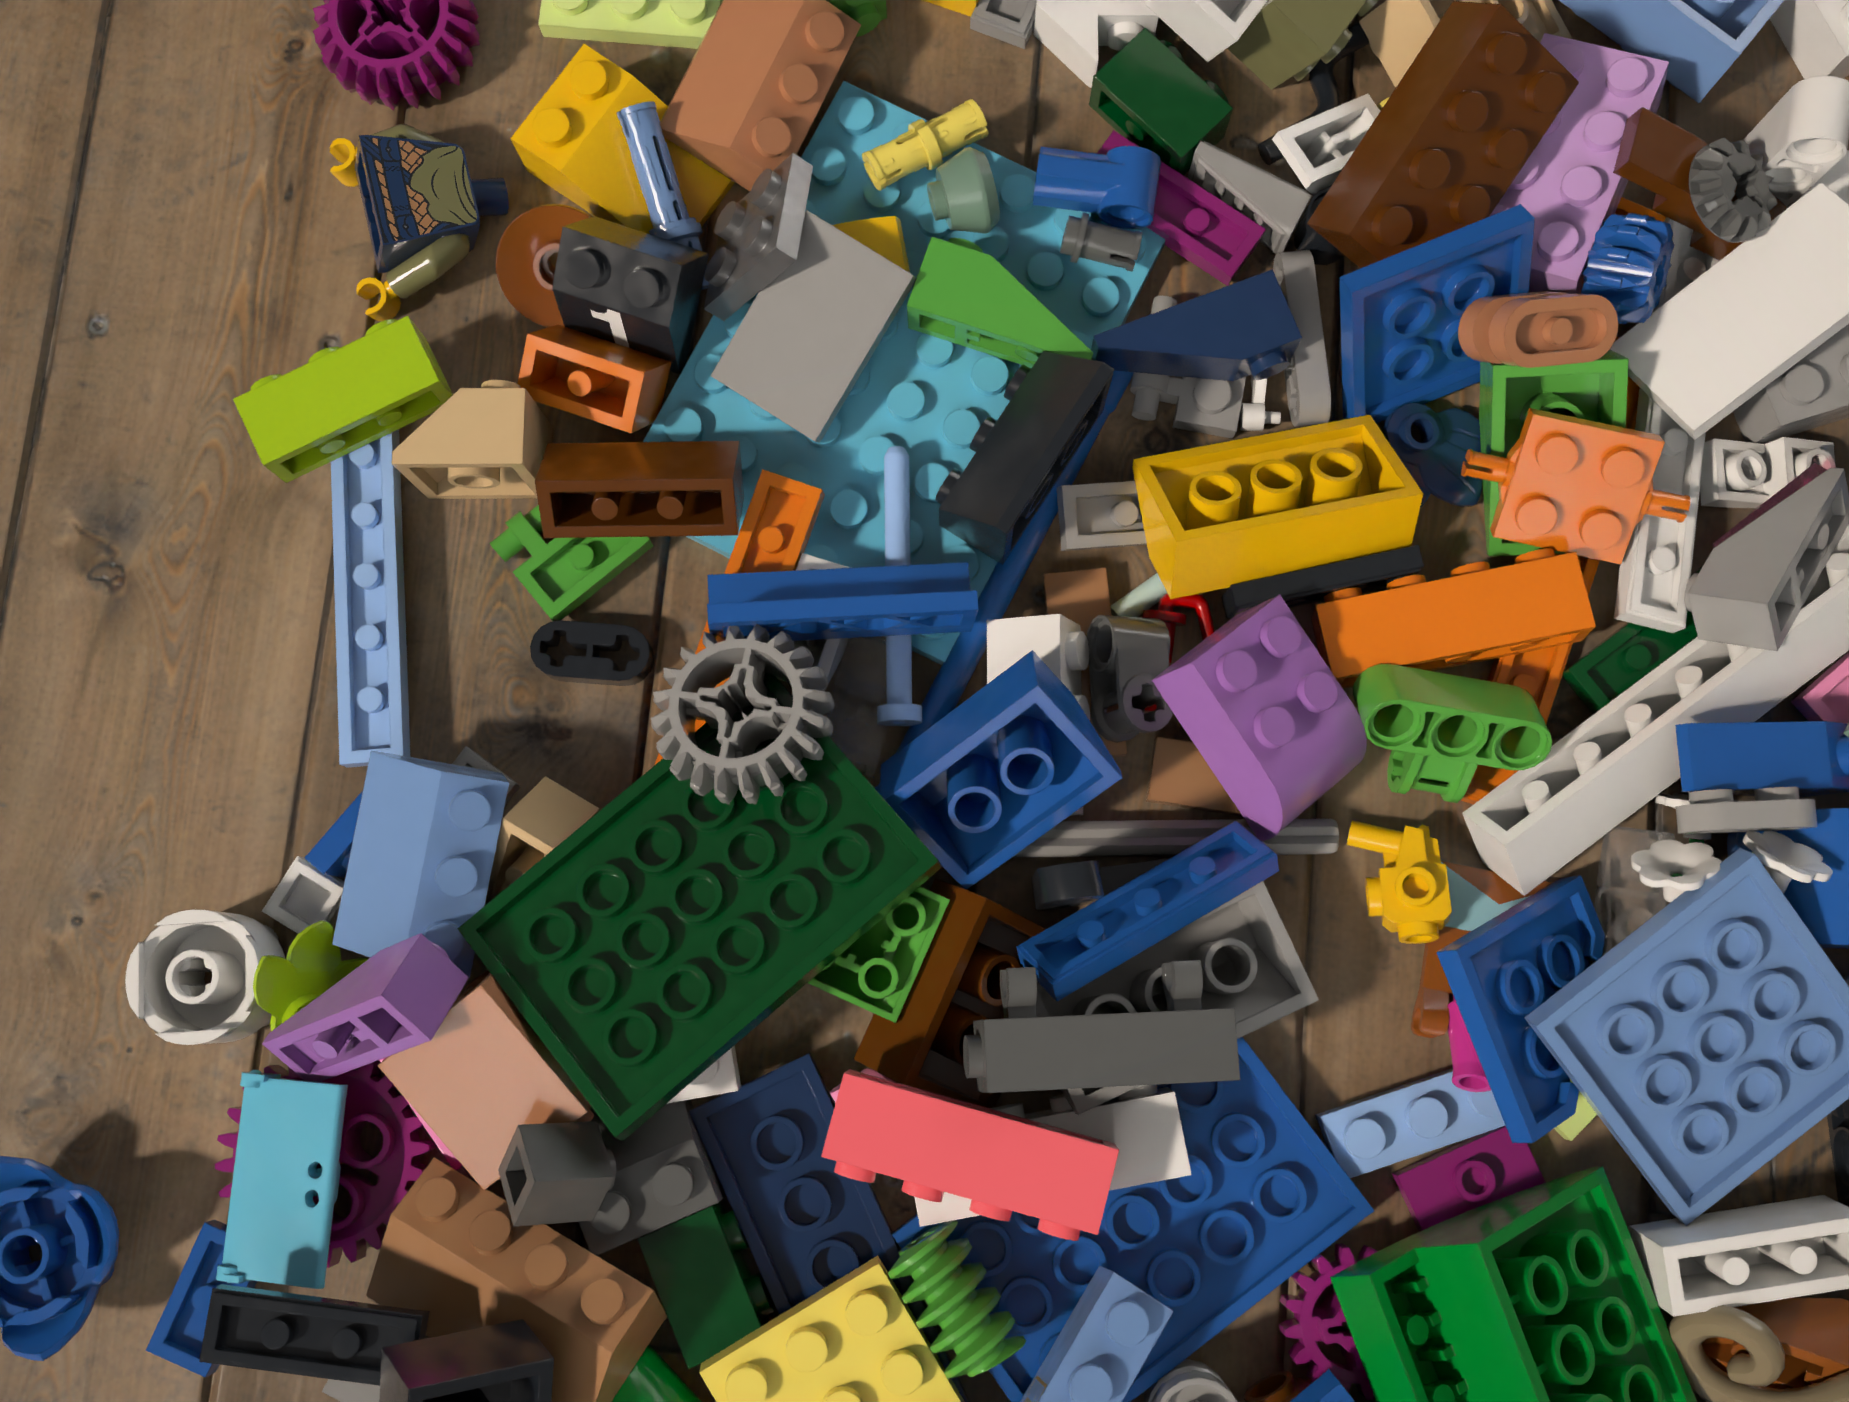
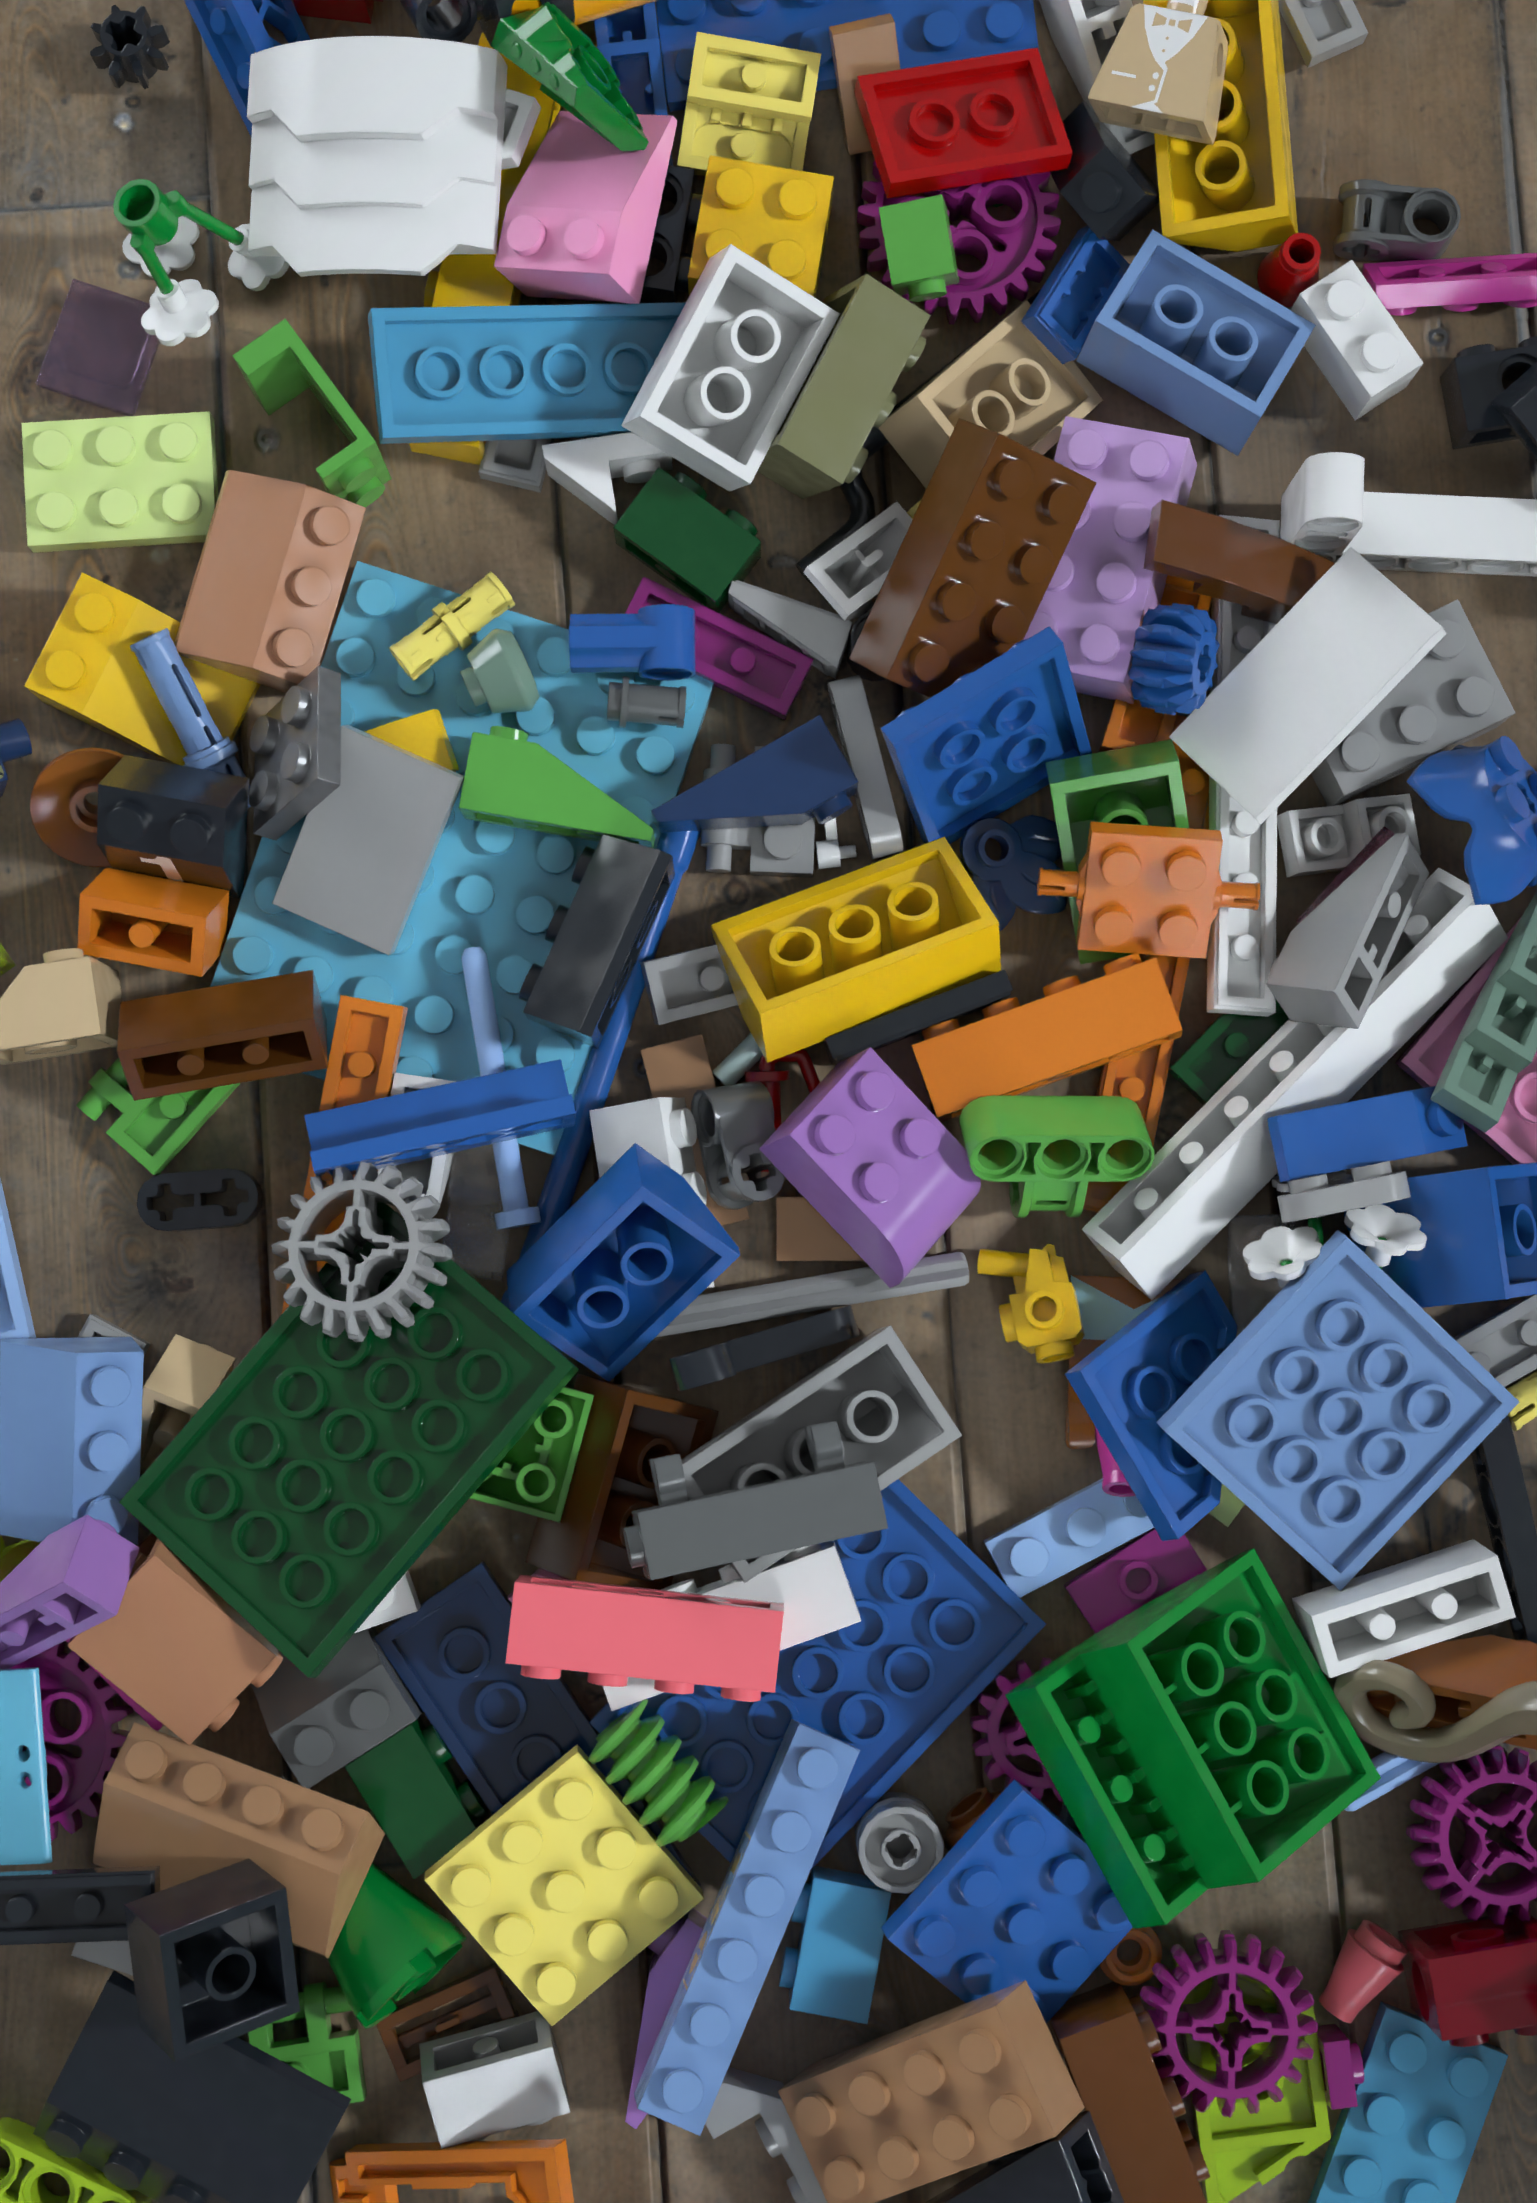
camera: 20 degrees left, 5 degrees up
(556, 1173) = (257, 1718): dark grey brick -> none
(1147, 909) = (784, 1376): blue tile -> none
(1538, 329) = (1087, 743): nougat brick -> none
(1712, 184) = (1241, 571): dark grey gear -> none

